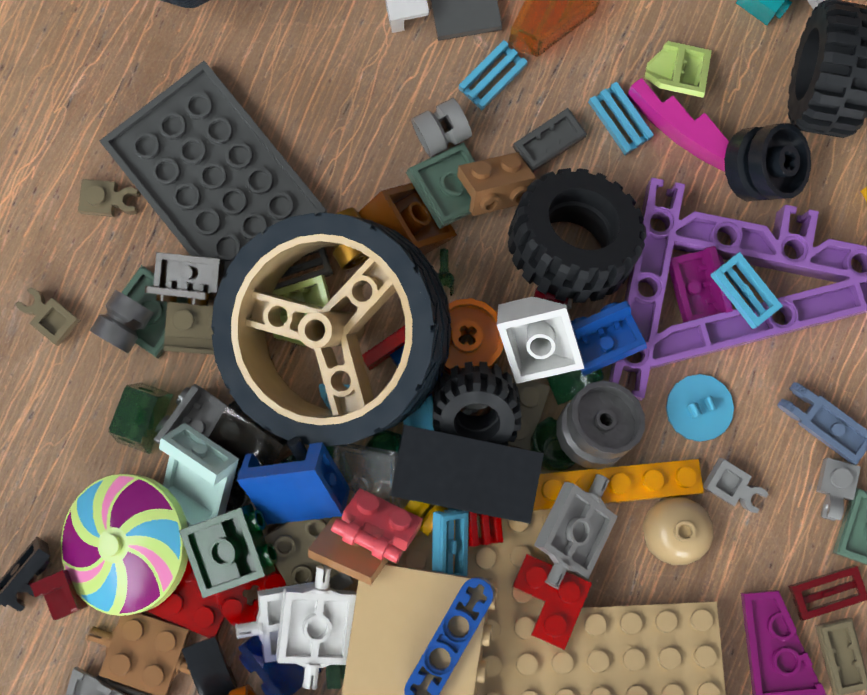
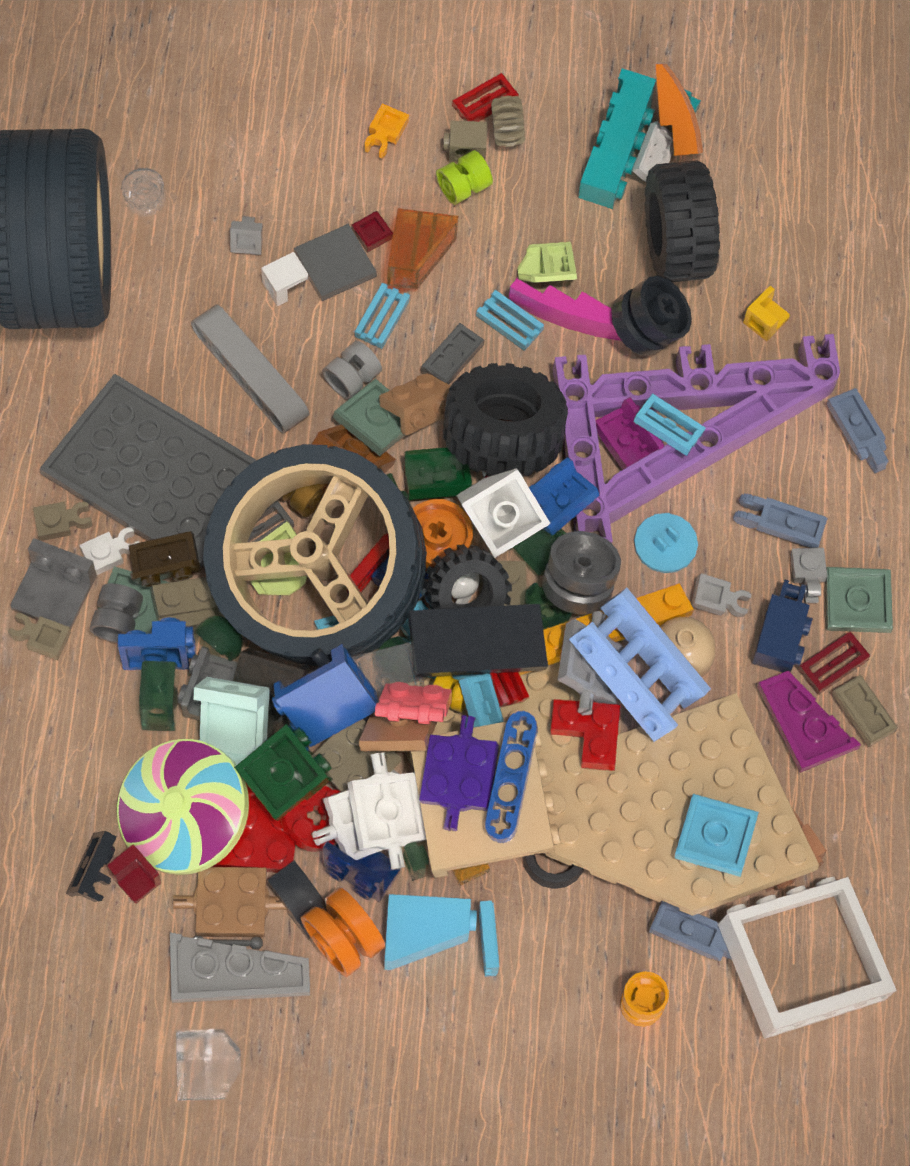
camera: 25 degrees left, 15 degrees down
(74, 271) = (54, 584): none -> flat silver bracket
(139, 246) = (107, 551): none -> white plate
(158, 368) = (168, 642): none -> blue plate
(209, 379) = (220, 636): none -> clear green hair
(341, 94) = (250, 368): none -> light grey beam
(398, 618) = (459, 772): none -> dark purple plate
(488, 267) = (435, 473): none -> dark green bracket
(651, 536) = (655, 649): none -> light blue fence
(789, 543) = (782, 630): none -> dark blue brick

